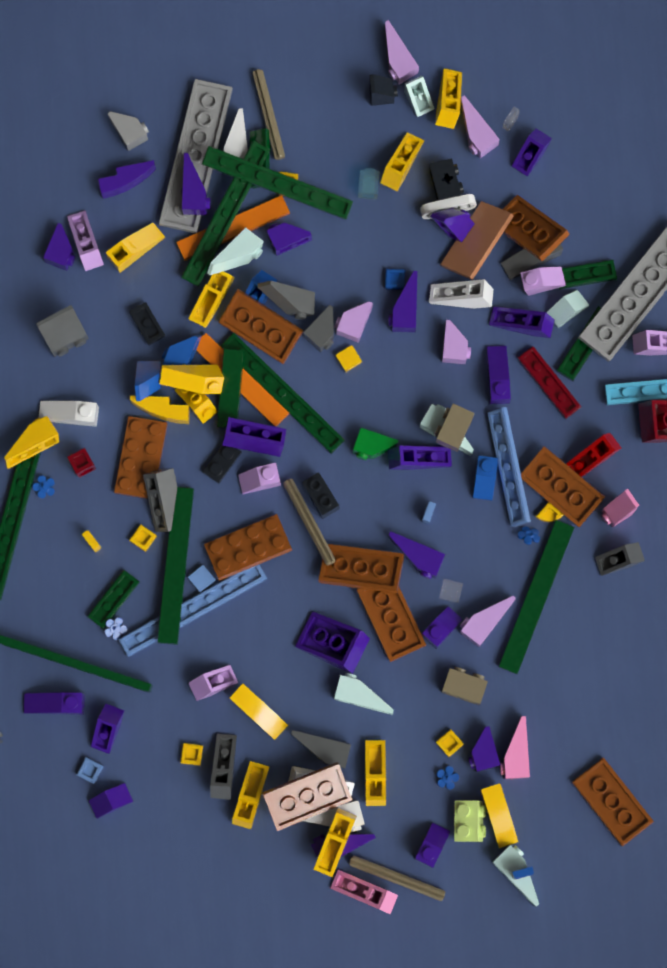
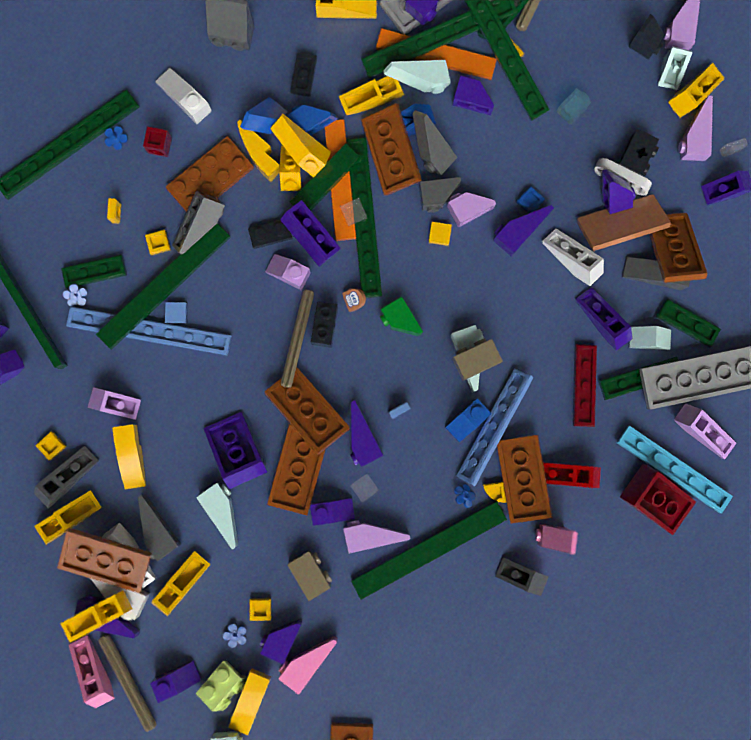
camera: 30 degrees right, 5 degrees up
(35, 439) = (132, 92): yellow slope -> none
(248, 547) = (232, 318): dark orange plate -> none
(271, 395) = (353, 212): none -> clear tile
(326, 458) = (354, 299): none -> nougat tile
(401, 161) = (614, 110): yellow slope -> none
(419, 457) = (428, 359): dark purple slope -> none
(455, 345) = (533, 293): lavender slope -> none
(498, 375) = (549, 346): dark purple slope -> none
(542, 279) = (650, 298): lavender slope -> none

